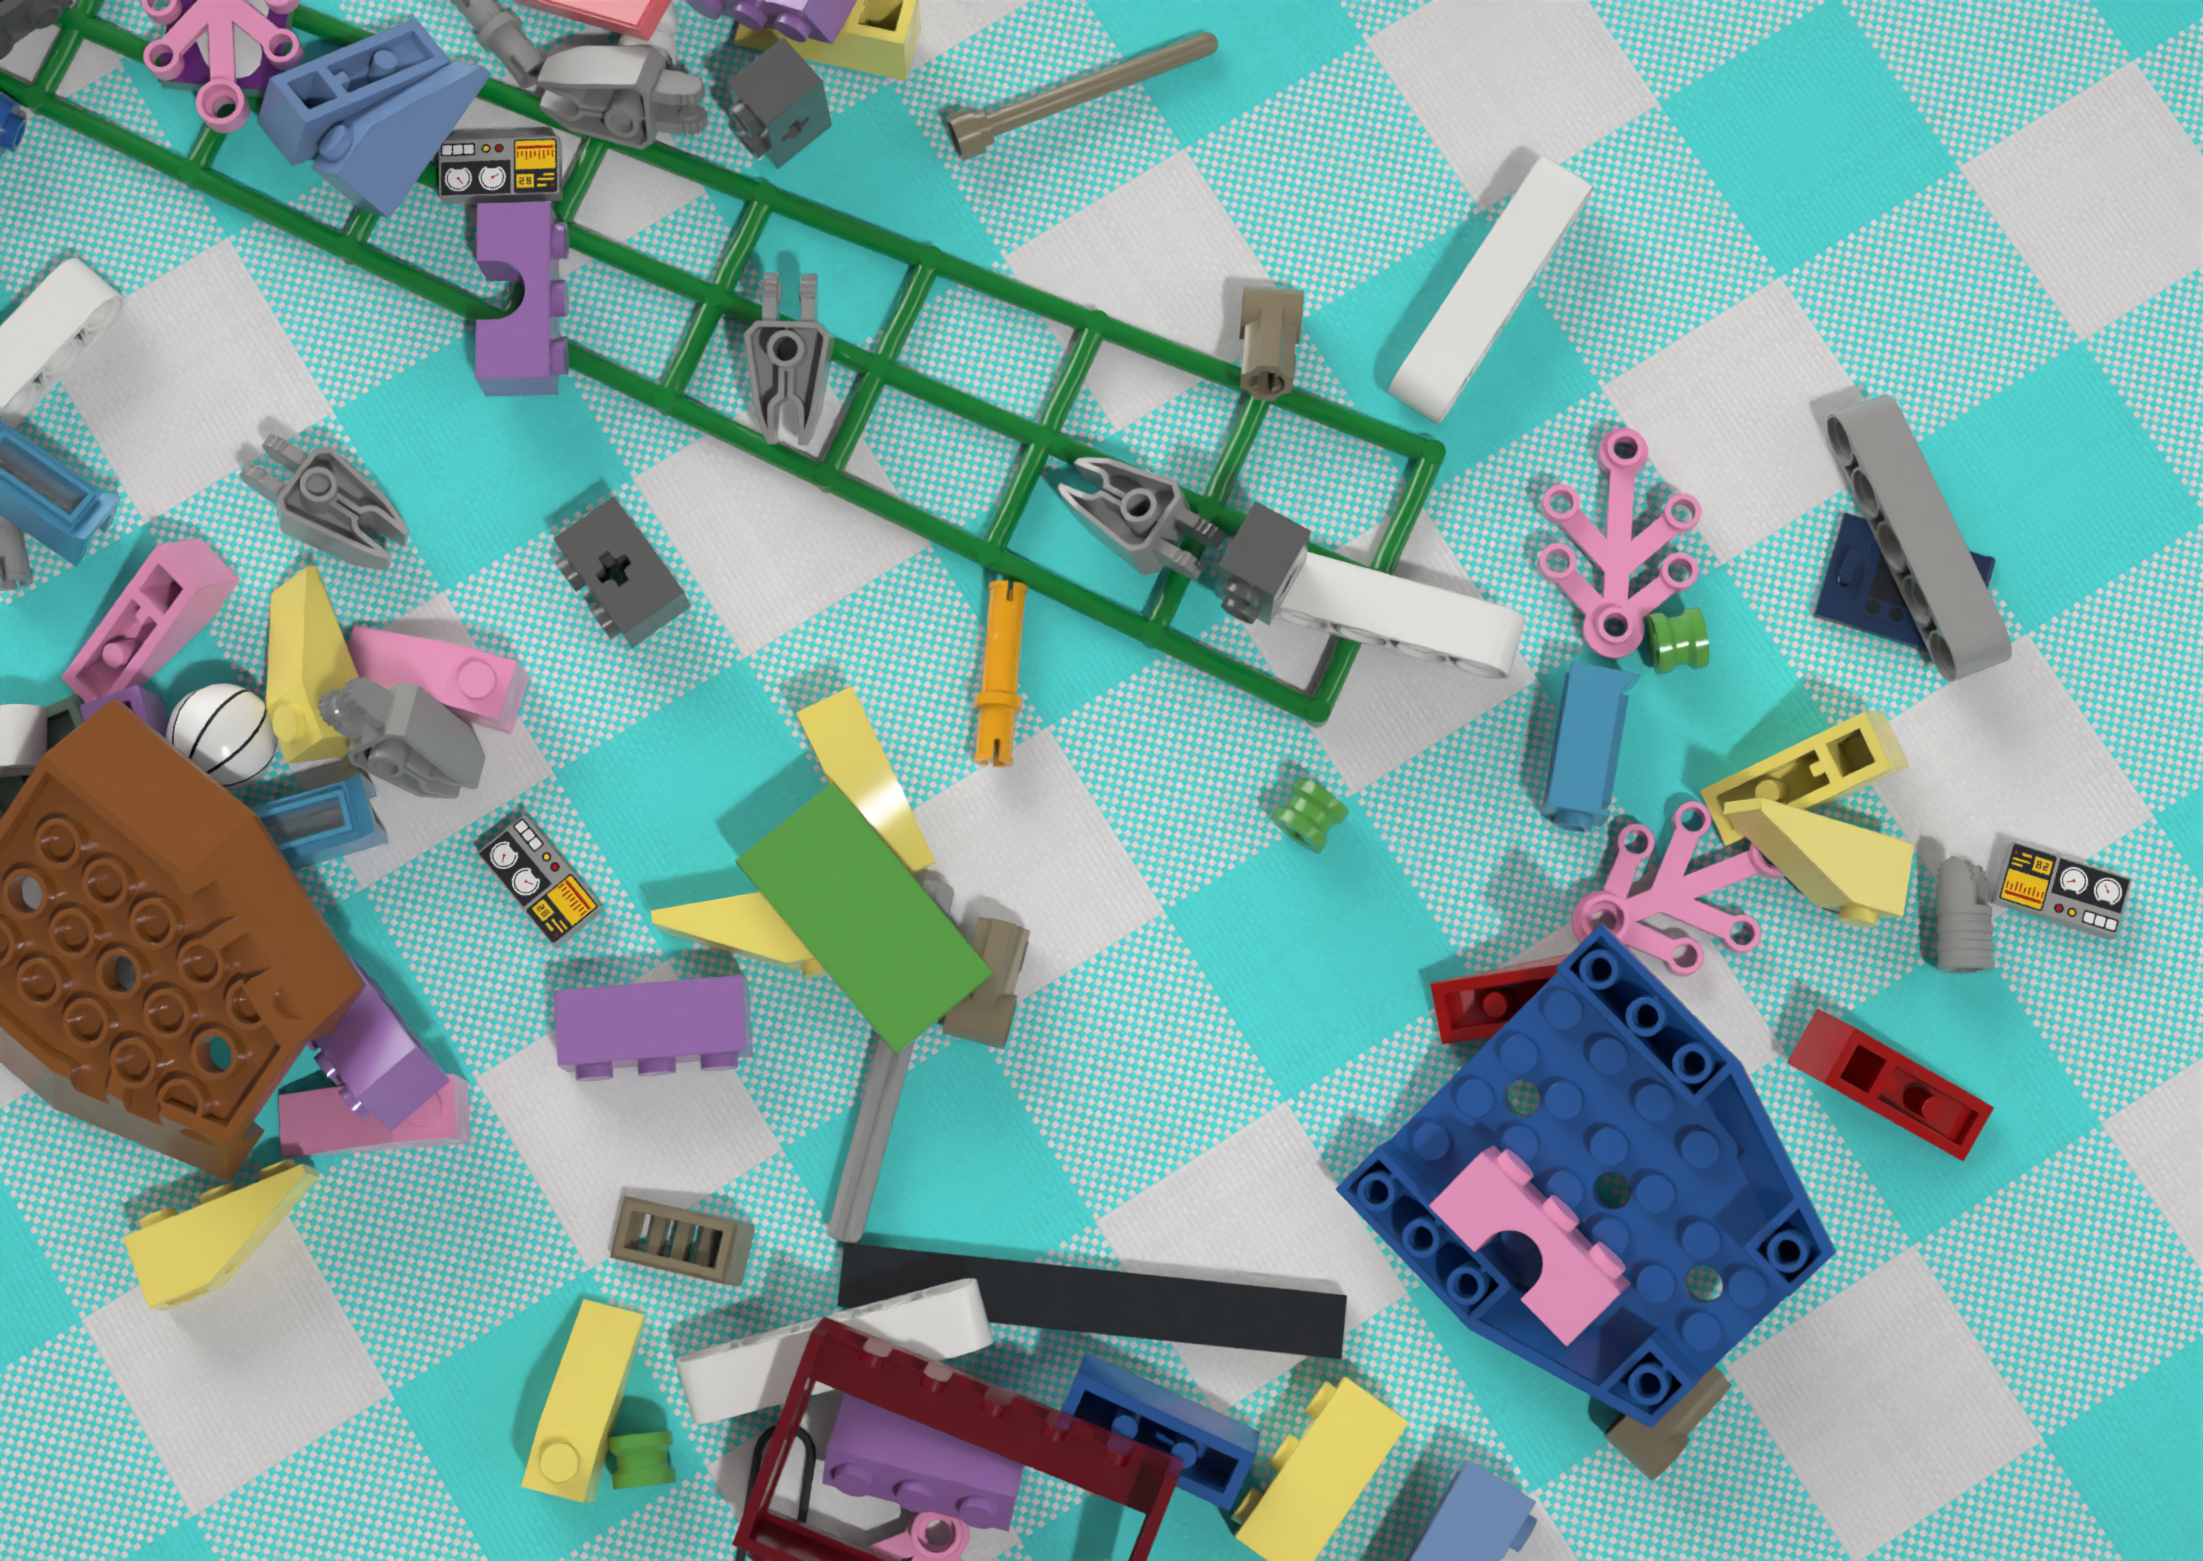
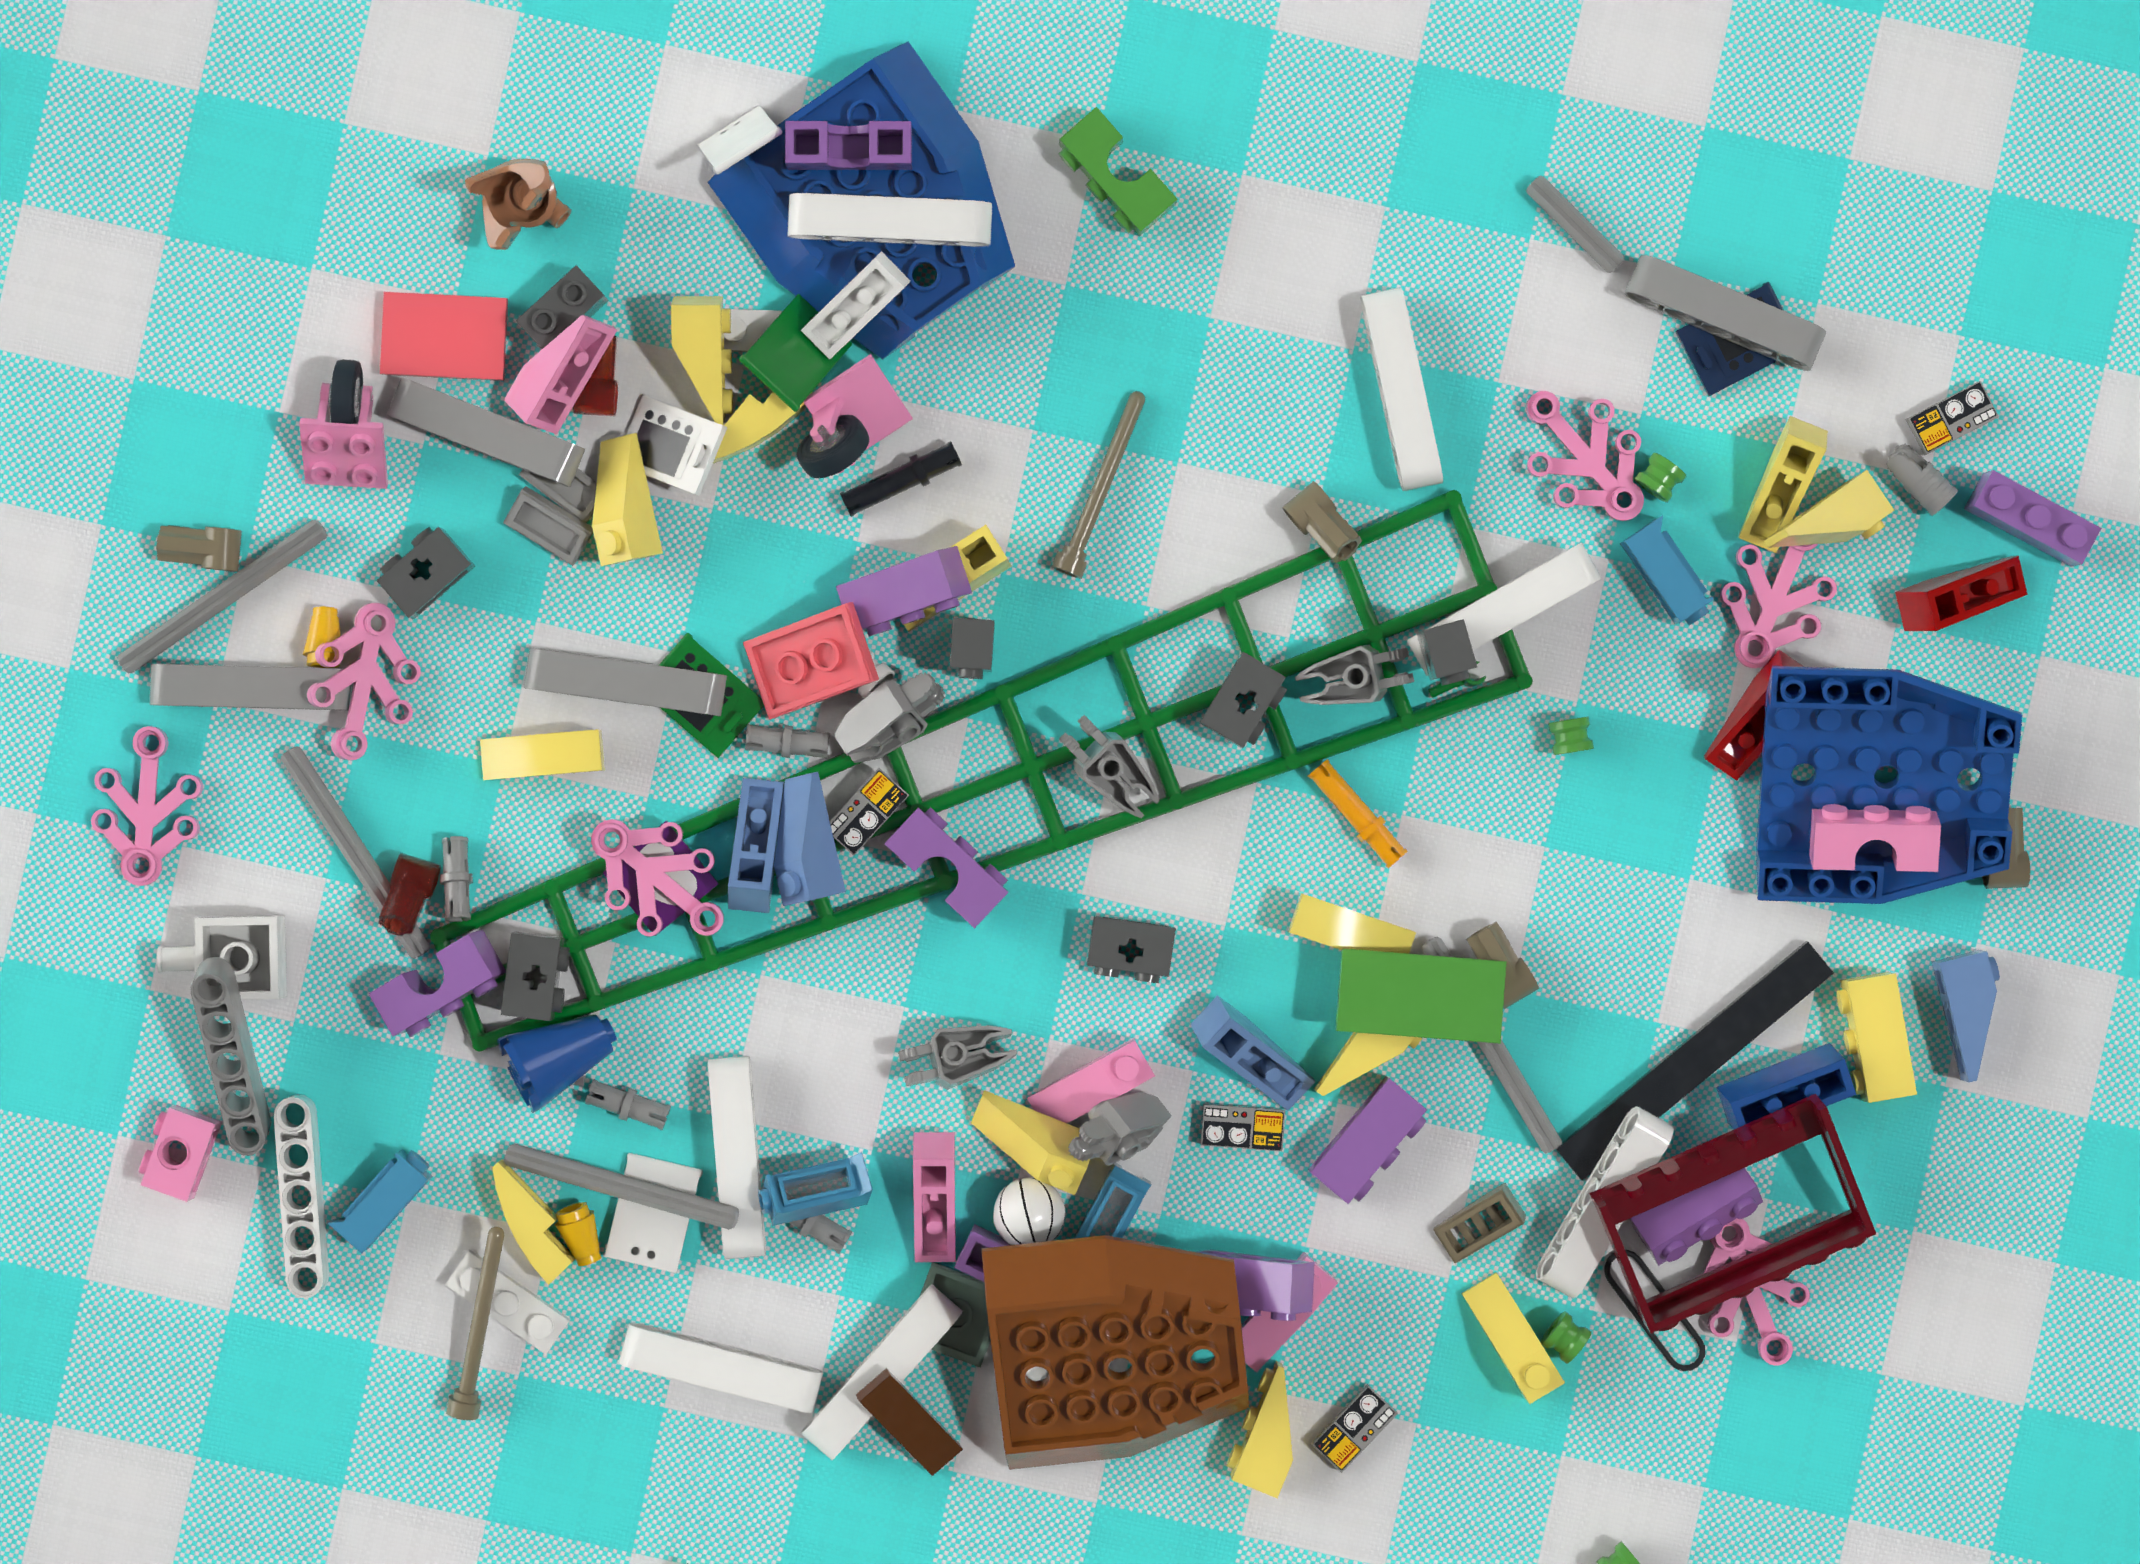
camera: 45 degrees left, 10 degrees up
(317, 1326) = (1354, 1428): none -> tile
(628, 808) = (1250, 1053): none -> medium blue slope
(1028, 418) = (1245, 676): none -> dark grey brick
(1249, 644) = (1439, 689): none -> green hand
(1843, 302) = (1575, 224): none -> light grey axle
(2049, 1078) = (2032, 518): none -> medium lavender brick

